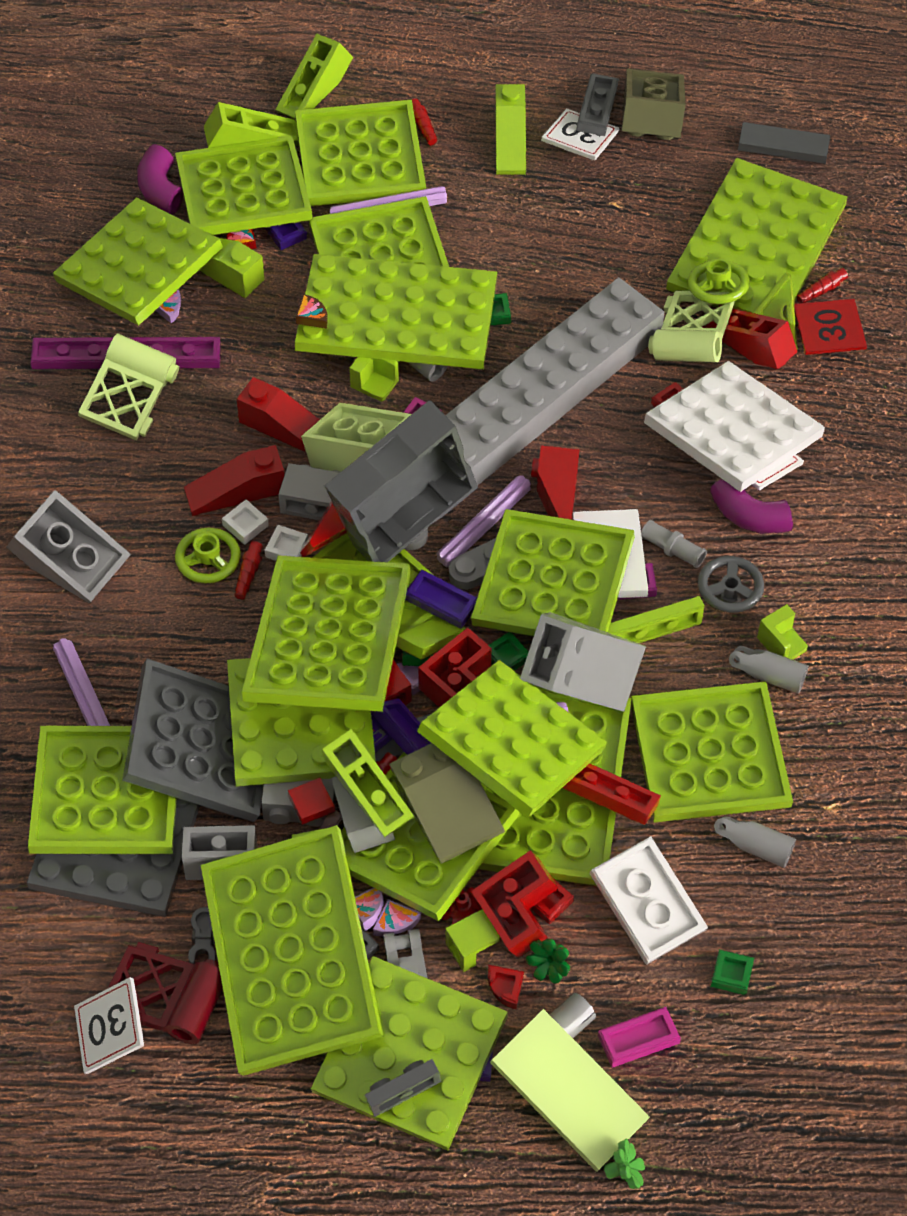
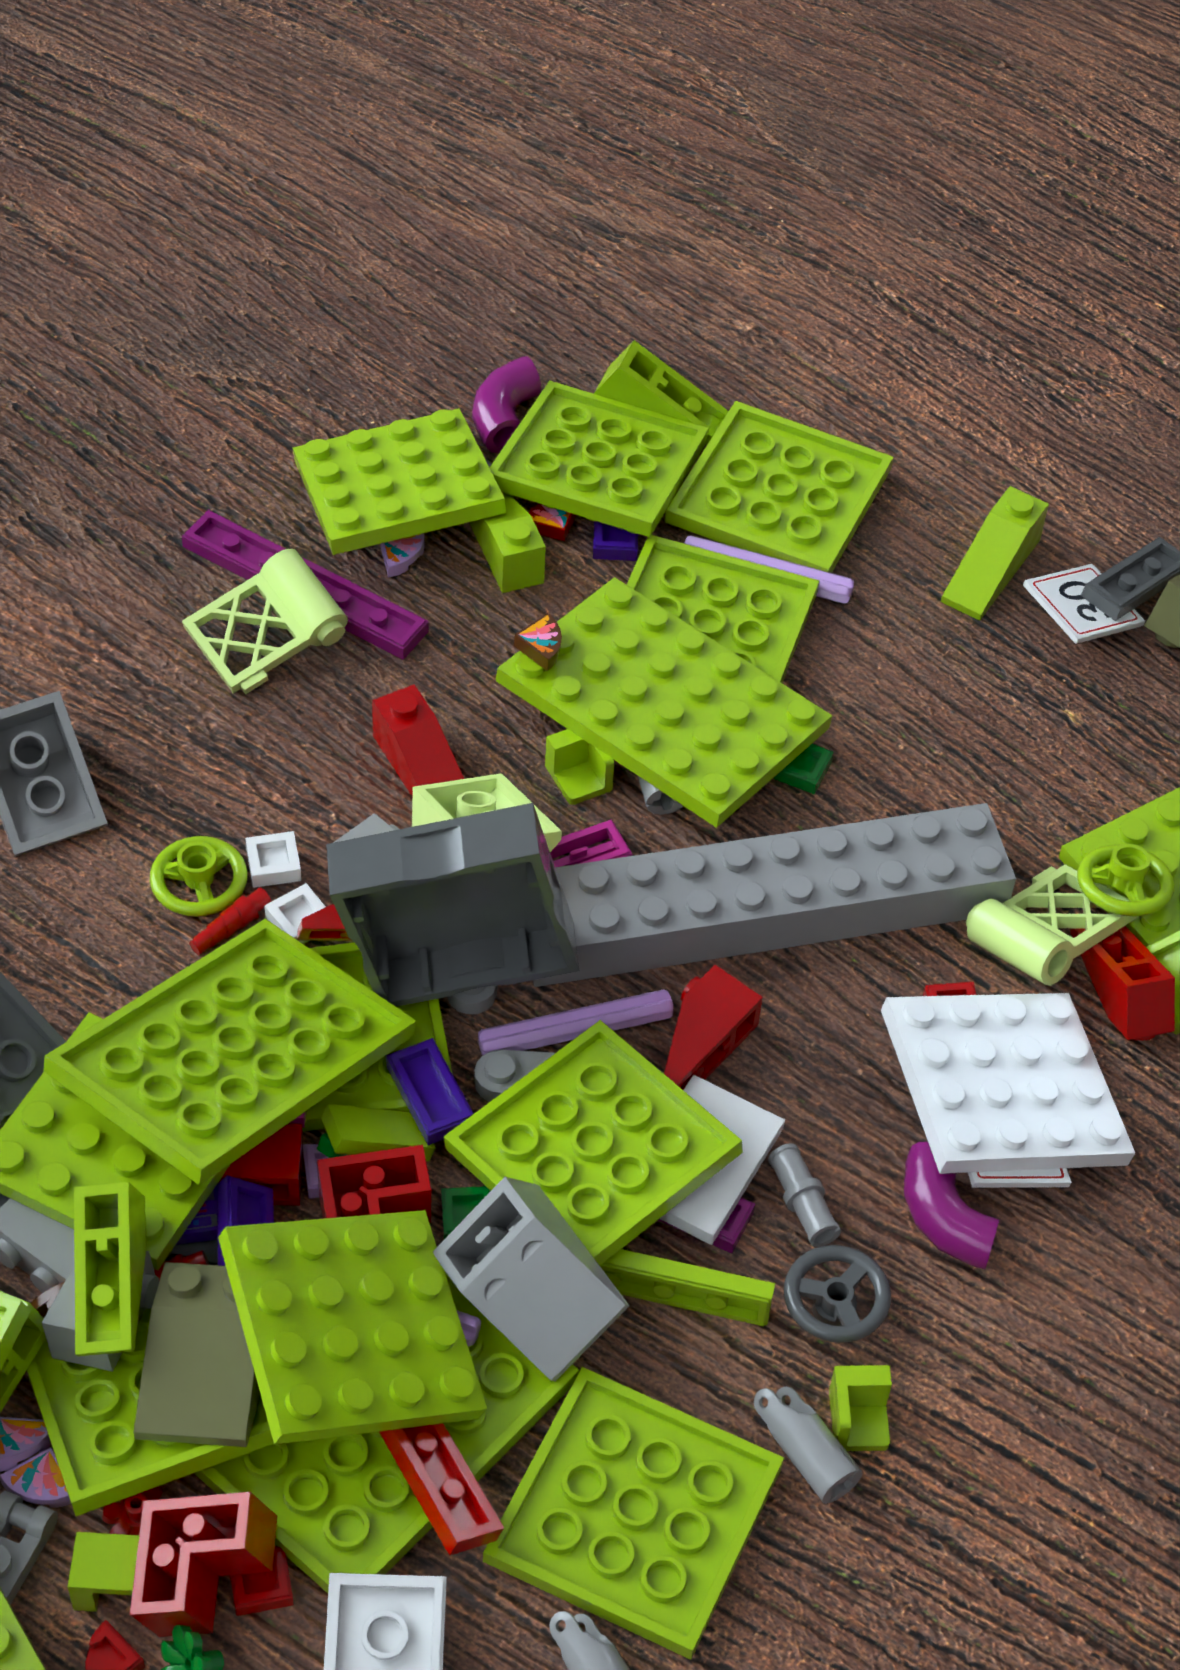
camera: 30 degrees right, 5 degrees down
(246, 477) = (310, 803): red slope -> none
(311, 801) = (43, 1254): red tile -> none
(316, 76) = (795, 373): lime slope -> none
(424, 122) = (892, 493): red animal -> none

